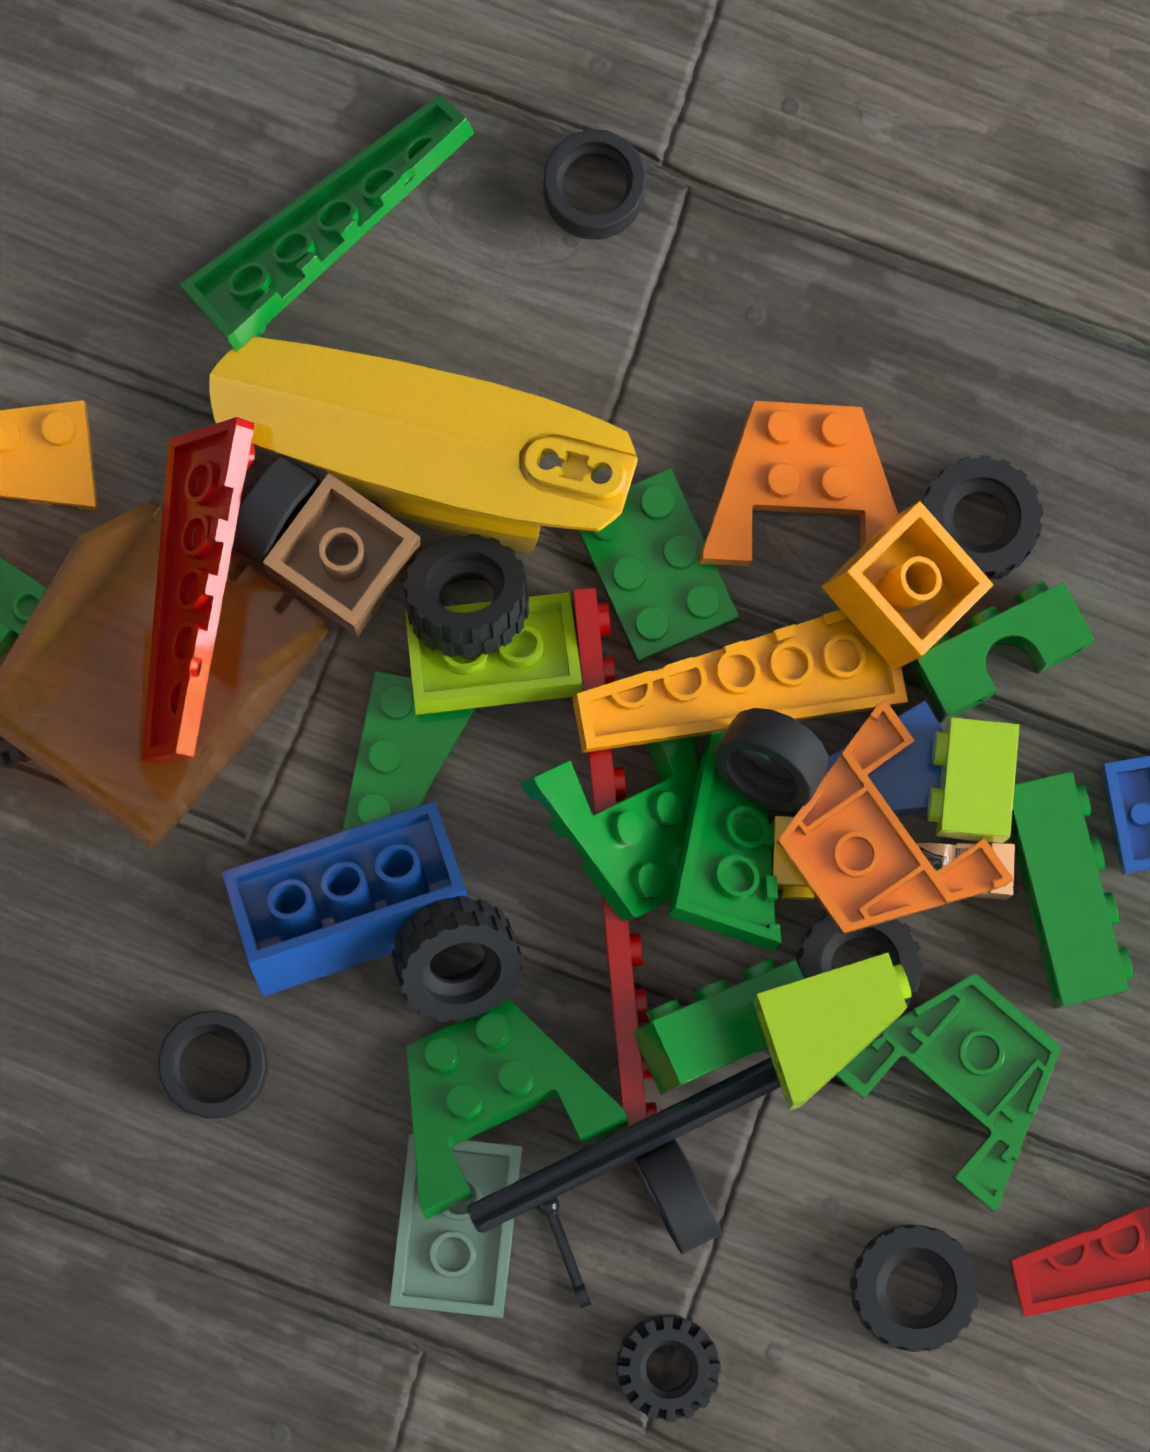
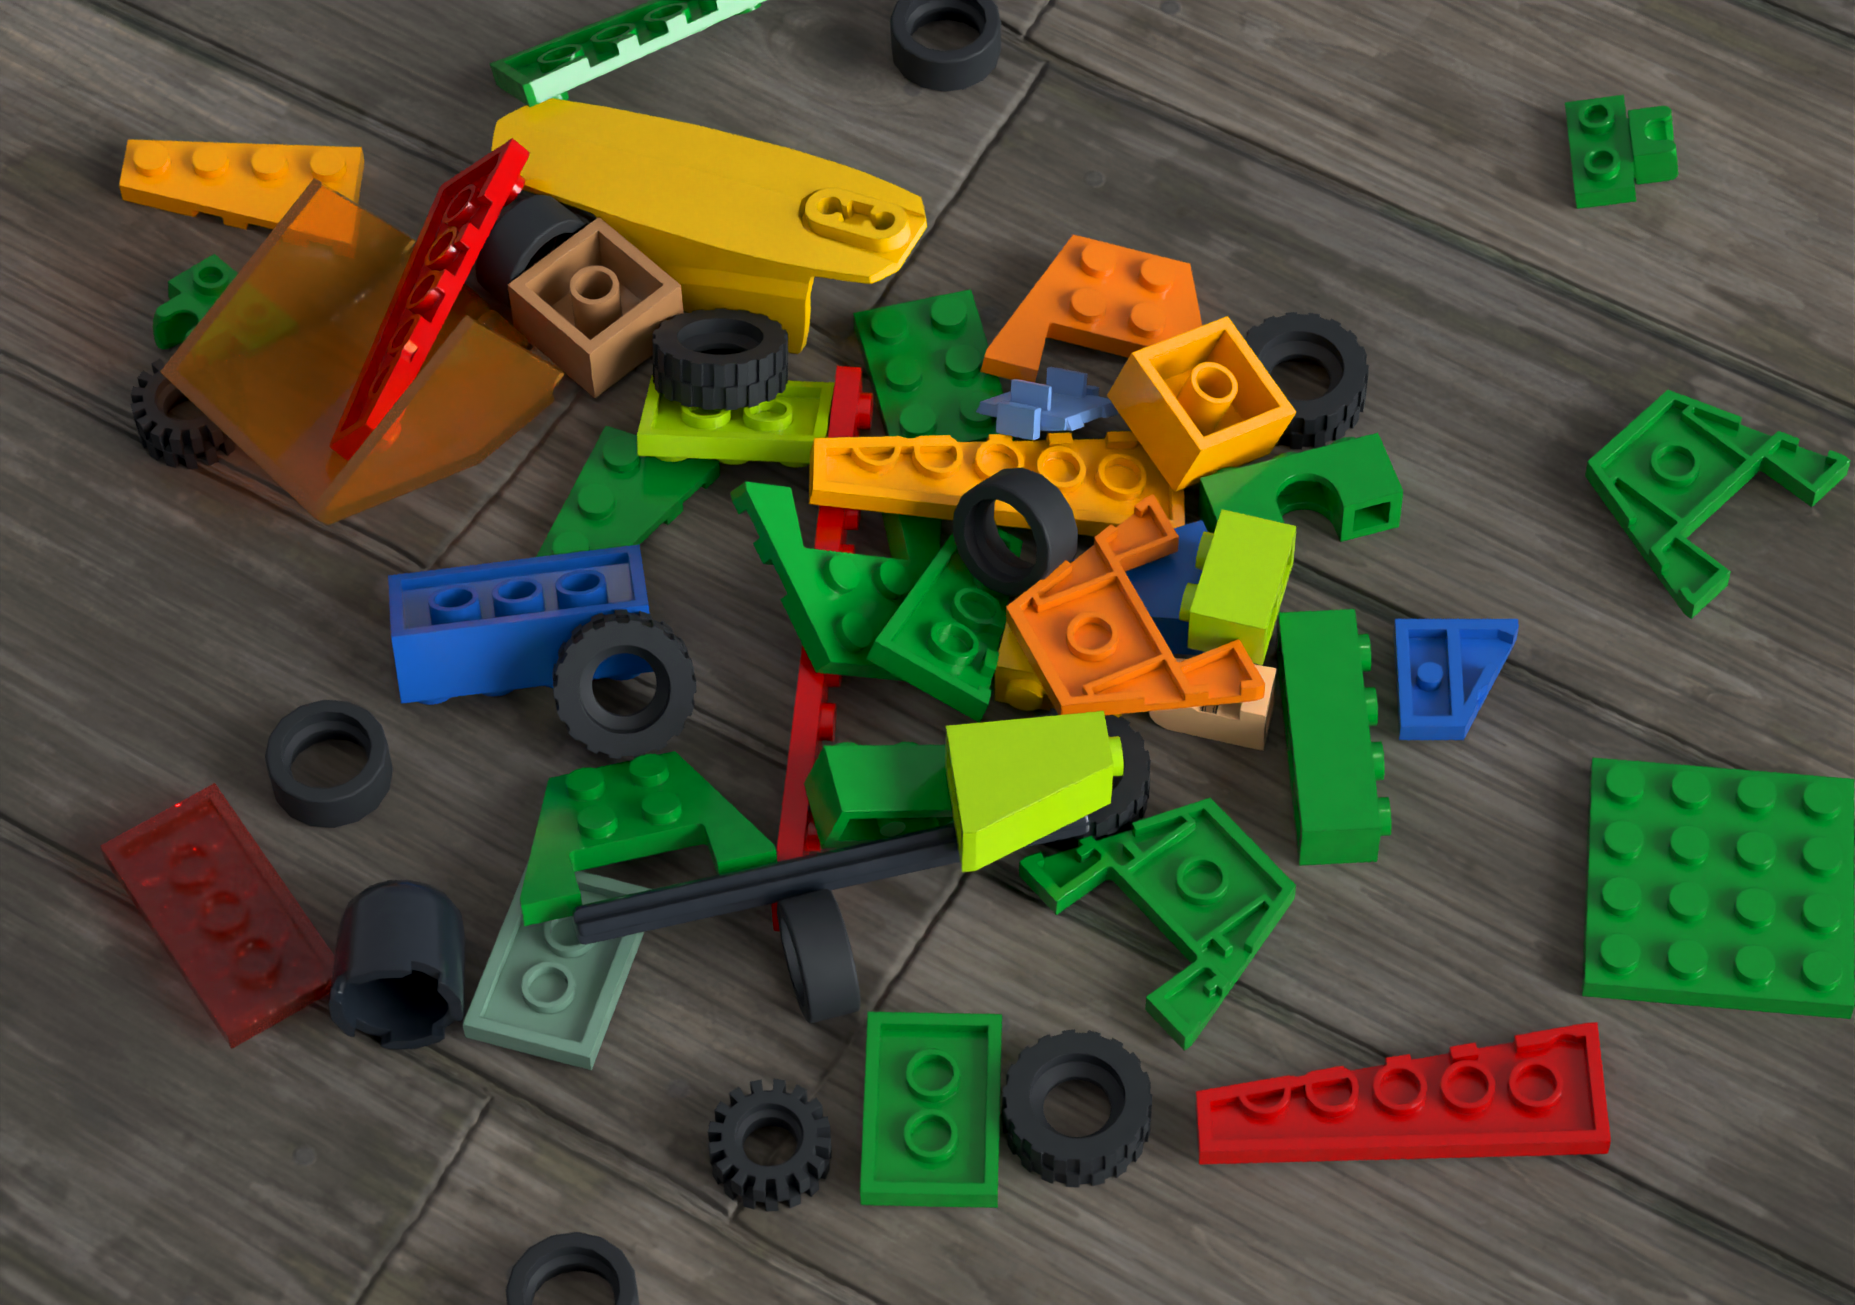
camera: 15 degrees right, 25 degrees down
(158, 1228) = (222, 914): none -> clear red plate
(324, 1259) = (399, 965): none -> black cylinder
(550, 1210) = (672, 967): black hinge -> none
(768, 601) = (1059, 405): none -> medium blue piece
(795, 1310) = (931, 1110): none -> green plate

